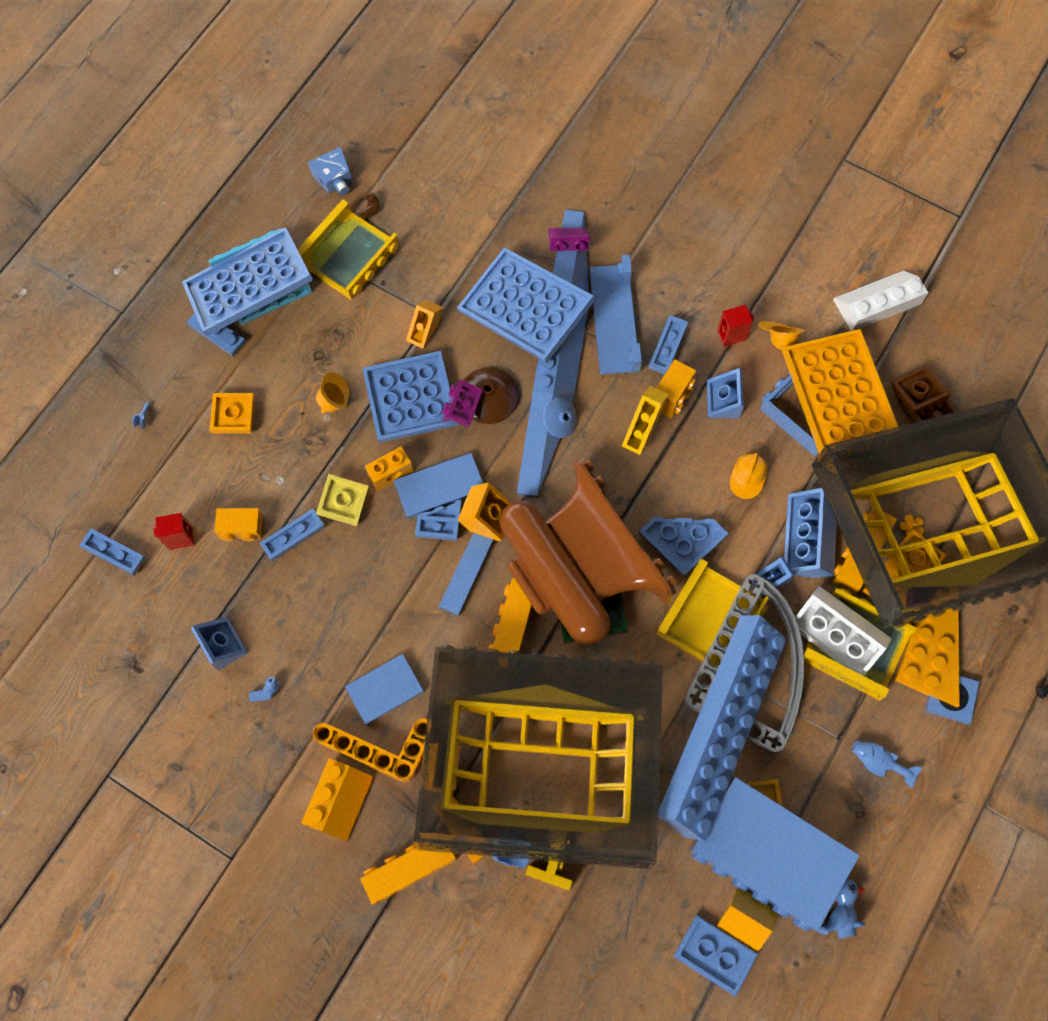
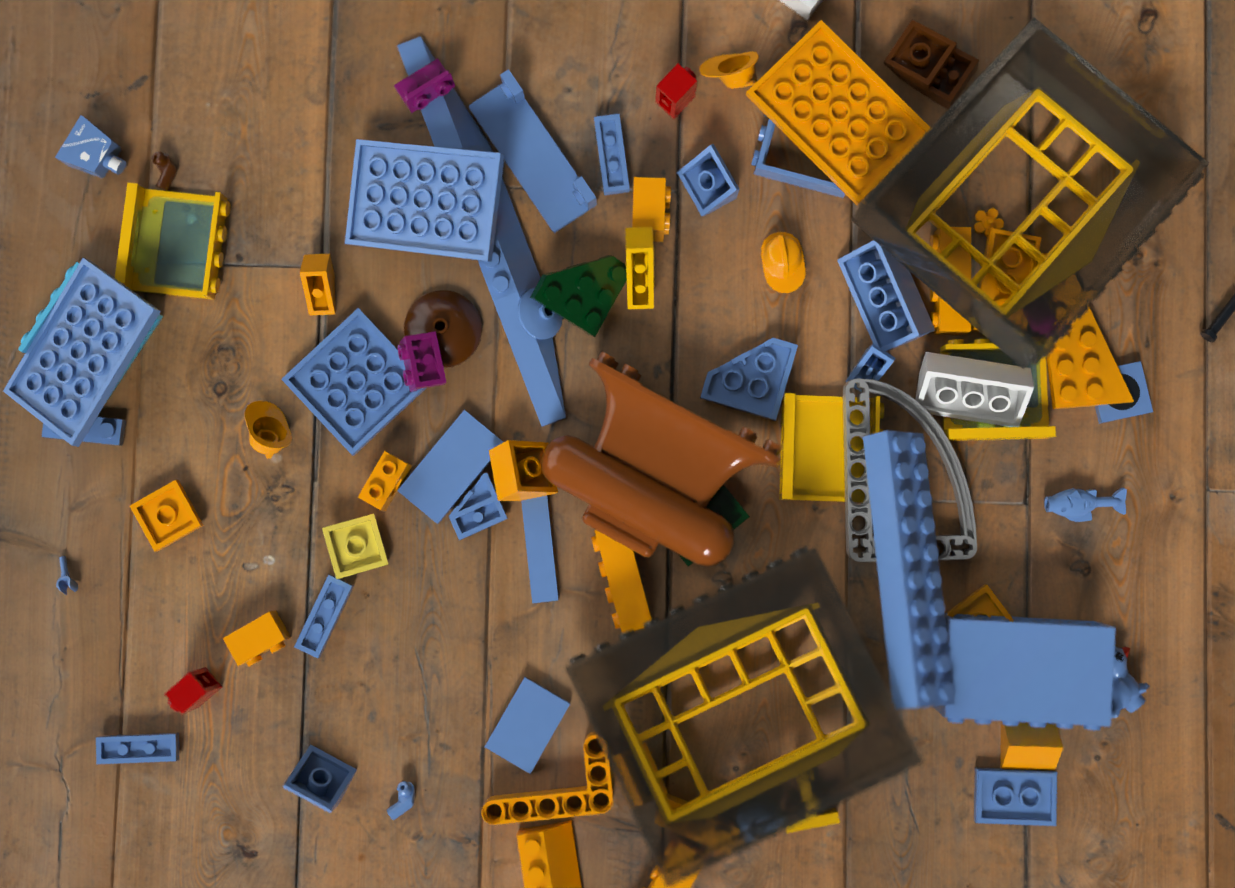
camera: 25 degrees left, 15 degrees up
(596, 418) = (583, 292): none -> dark green plate

